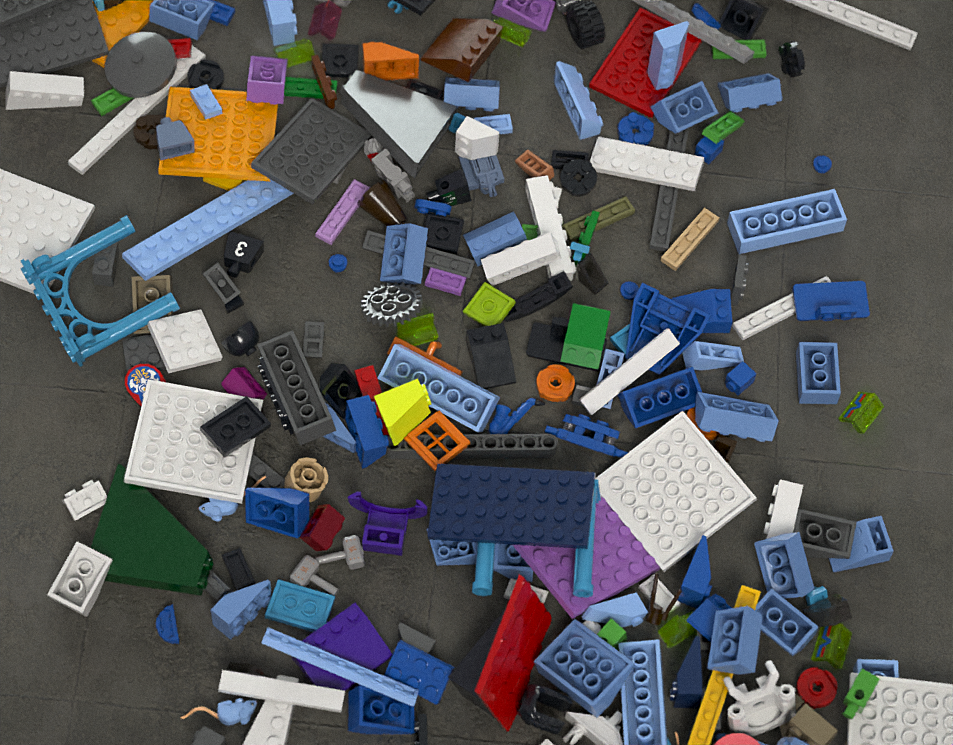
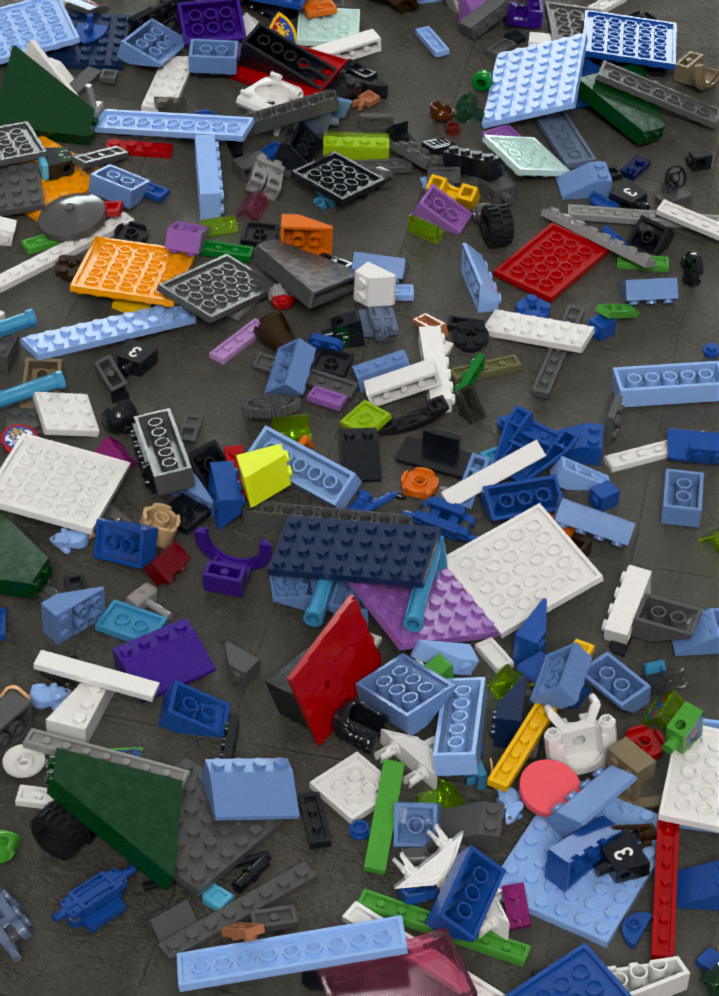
camera: 10 degrees right, 20 degrees down
(173, 139) = (89, 265): sand blue torso -> none
(206, 101) = (126, 247): light blue plate -> none
(235, 426) = (98, 473): black plate -> none
(323, 81) = (240, 242): reddish brown plate -> none
(330, 454) = (191, 512): none -> black plate
(337, 262) = (226, 376): blue plate -> none
(340, 666) = (159, 663): light blue tile -> none
(352, 552) = (192, 587): light grey piece -> none
(392, 174) = (293, 312): light grey hips -> none
(419, 671) = (237, 683): blue plate -> none
(449, 429) = (306, 499): orange piece -> none
(463, 46) = (380, 233): reddish brown slope -> none
(579, 250) = (460, 378): dark azure tile -> none
(585, 336) = (453, 442): green slope -> none
(655, 612) = (485, 664): dark brown plant -> none
(667, 54) = (570, 243): light blue slope -> none
(685, 108) = (581, 291): medium blue slope -> none
(689, 239) = (571, 390): tan plate -> none
(784, 565) = (624, 633): medium blue slope -> none

